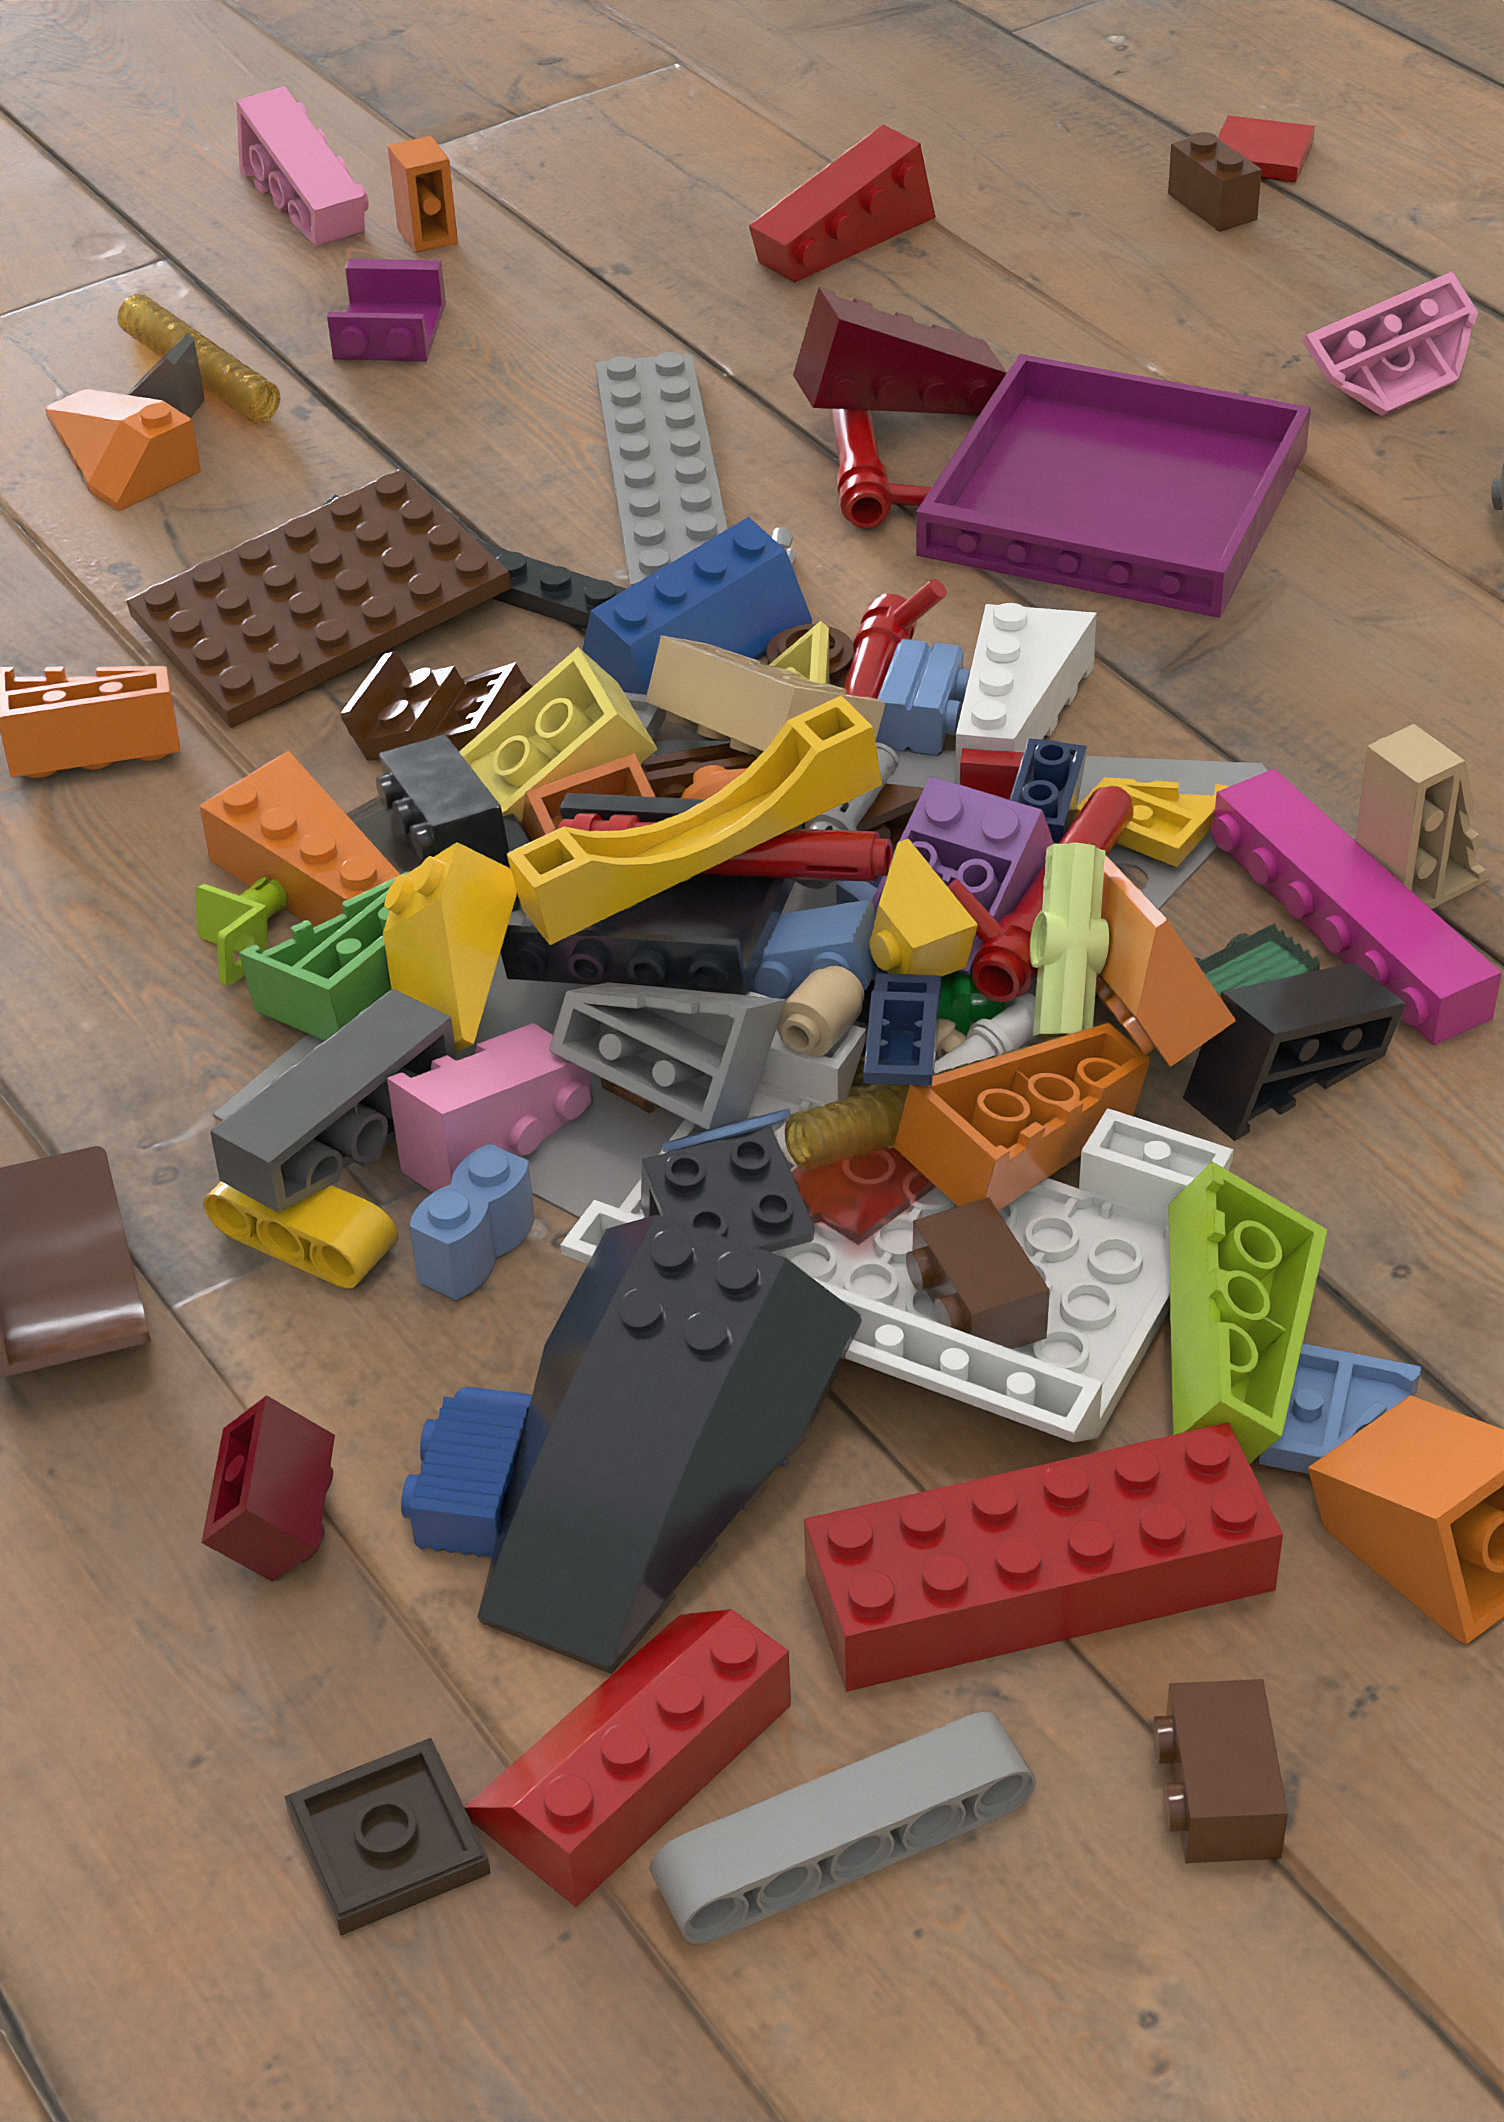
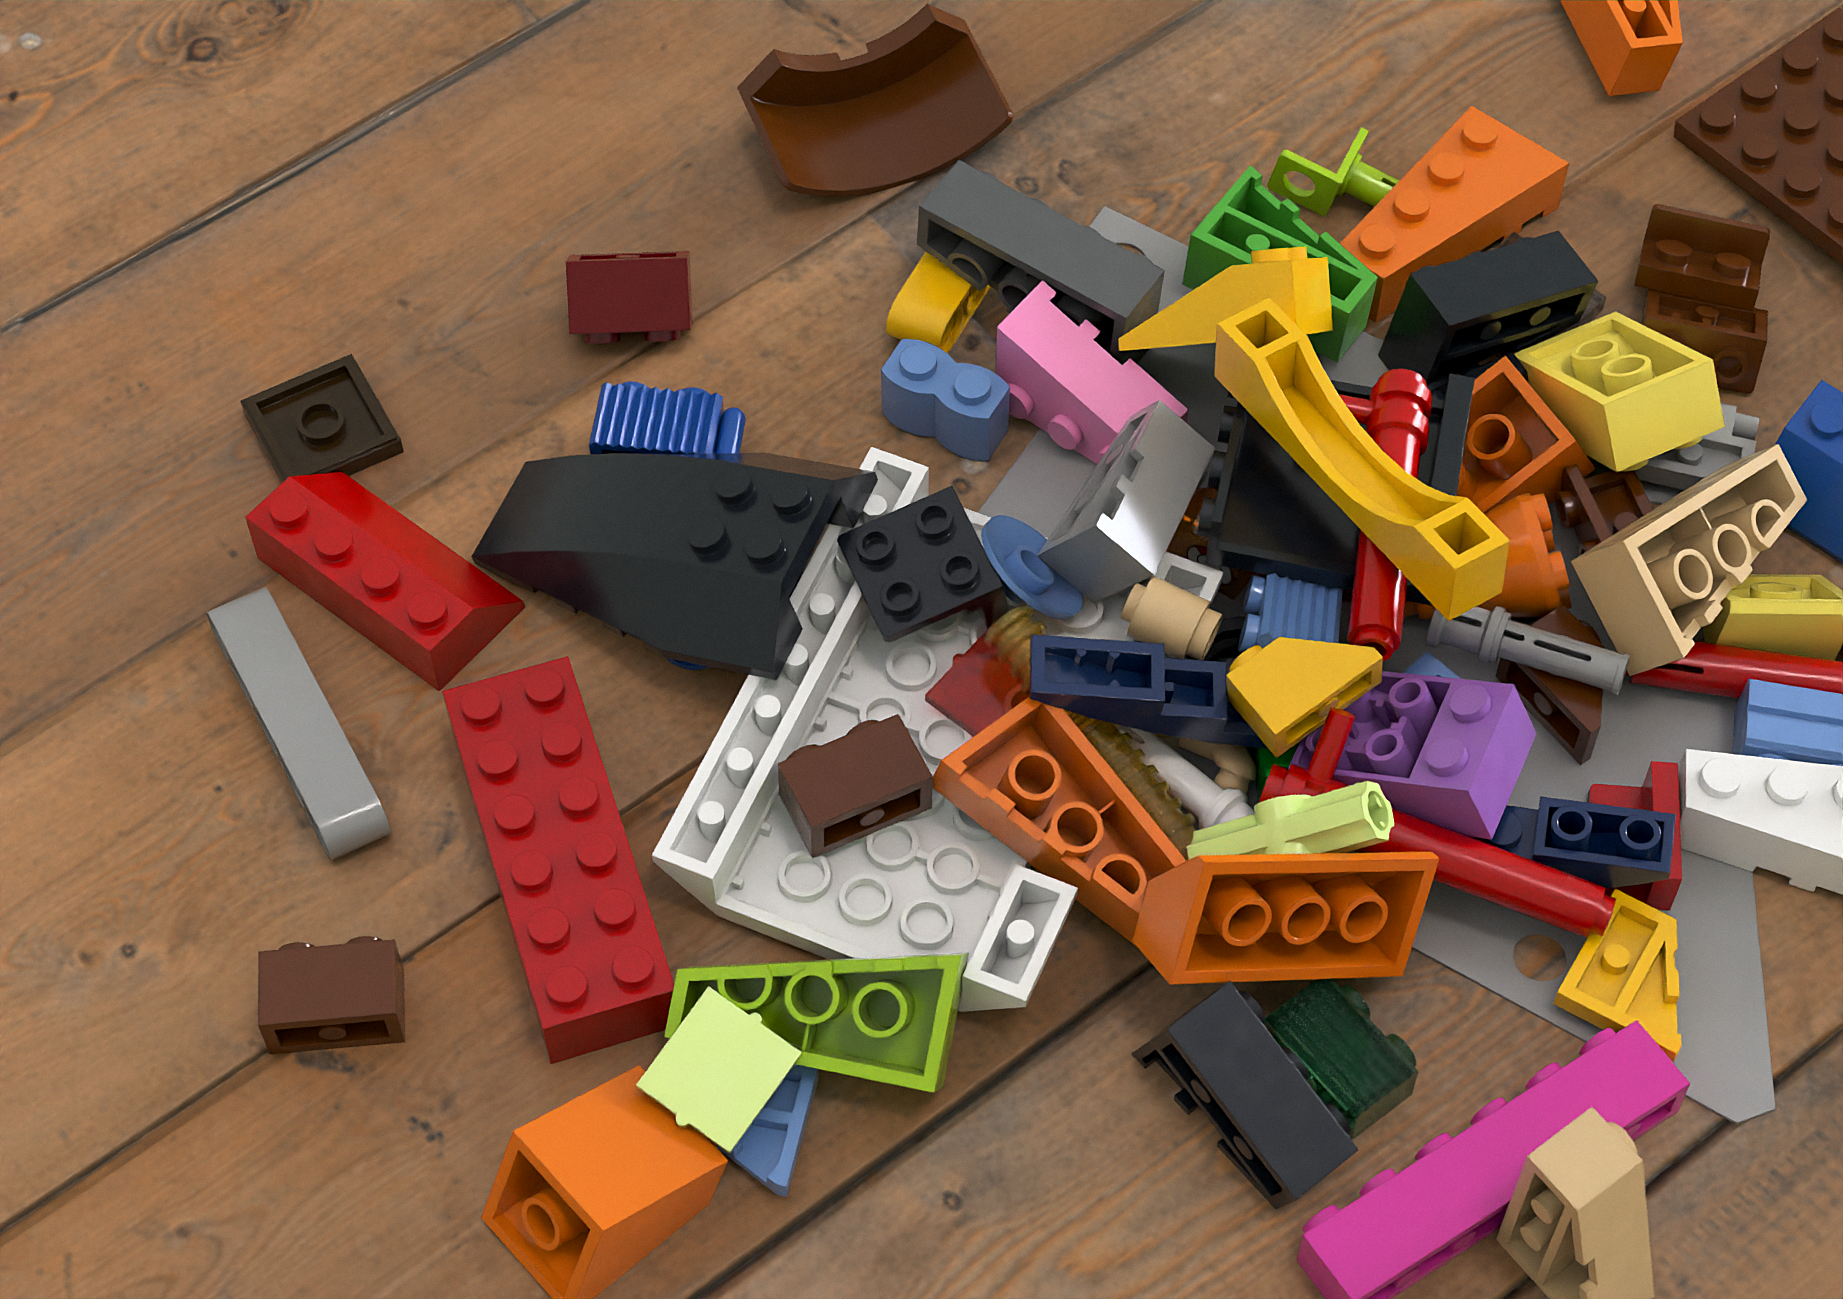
camera: 85 degrees right, 15 degrees up
(1323, 1383) = (719, 1070): none -> yellowish green piece

